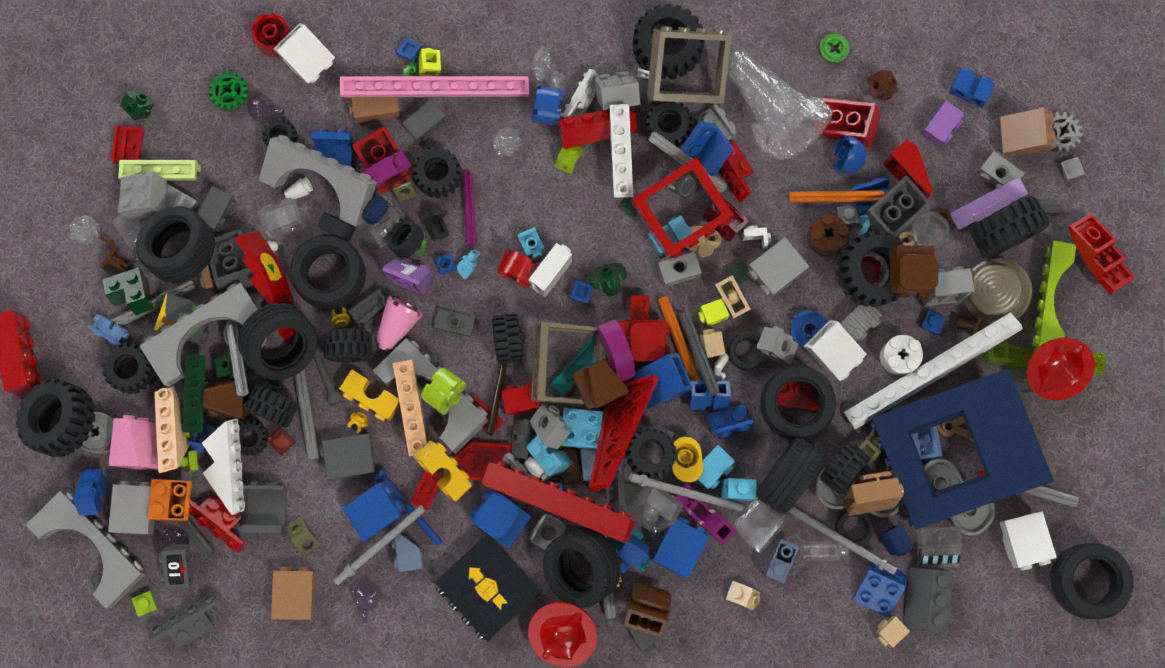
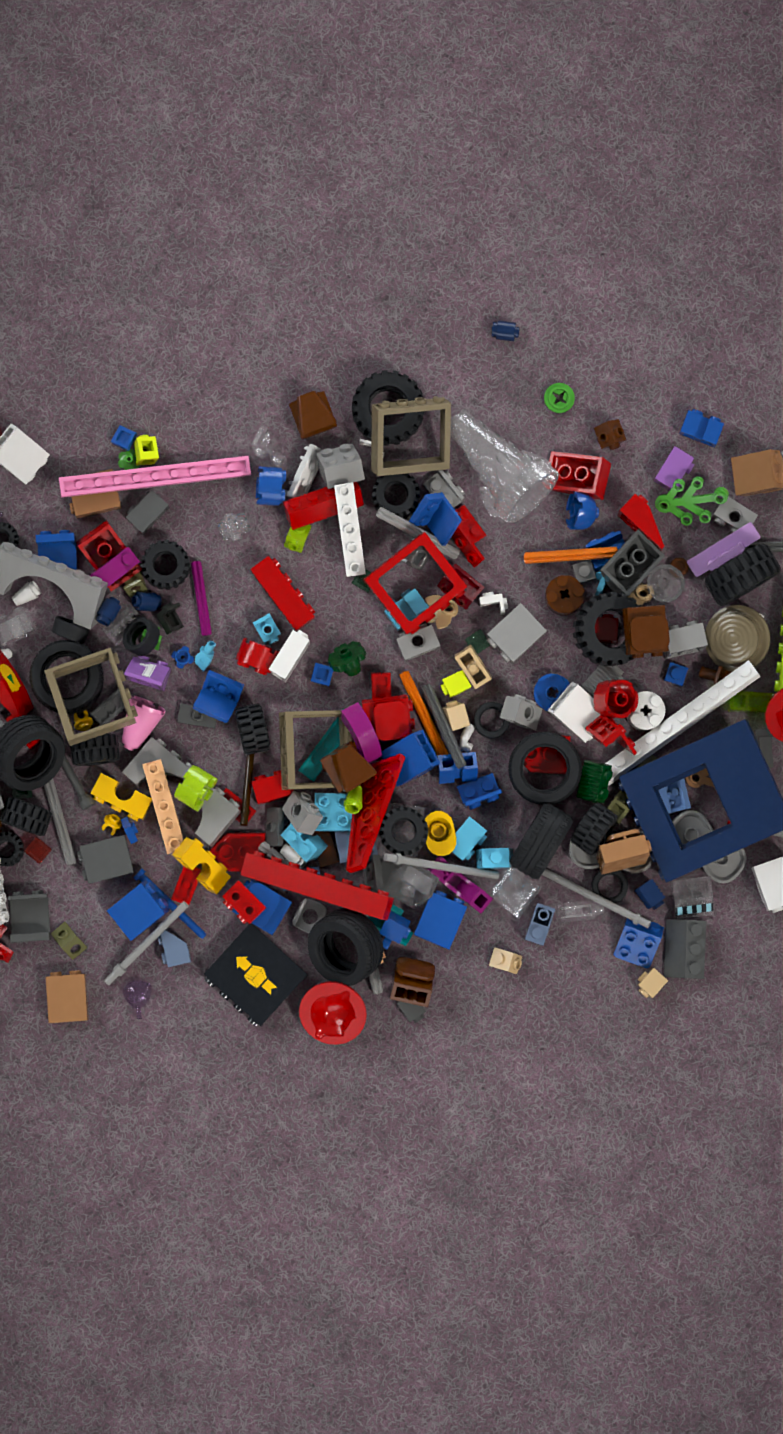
camera: 10 degrees left, 5 degrees up
(338, 258) = (80, 664): none -> dark tan window
(375, 429) = (130, 829): none -> blue plate
(414, 206) = (146, 601): none -> dark blue brick
(477, 304) = (218, 696): none -> blue bracket
(482, 512) = (243, 902): none -> red brick
(549, 209) = (282, 593): none -> red brick
(594, 42) = (312, 414): none -> reddish brown piece
(602, 418) = (353, 801): none -> lime cone
(847, 420) = (594, 781): none -> dark green brick
(866, 371) = (607, 731): none -> red bracket
(874, 339) = (615, 698): none -> red brick
(957, 153) = (689, 501): none -> bright green plant

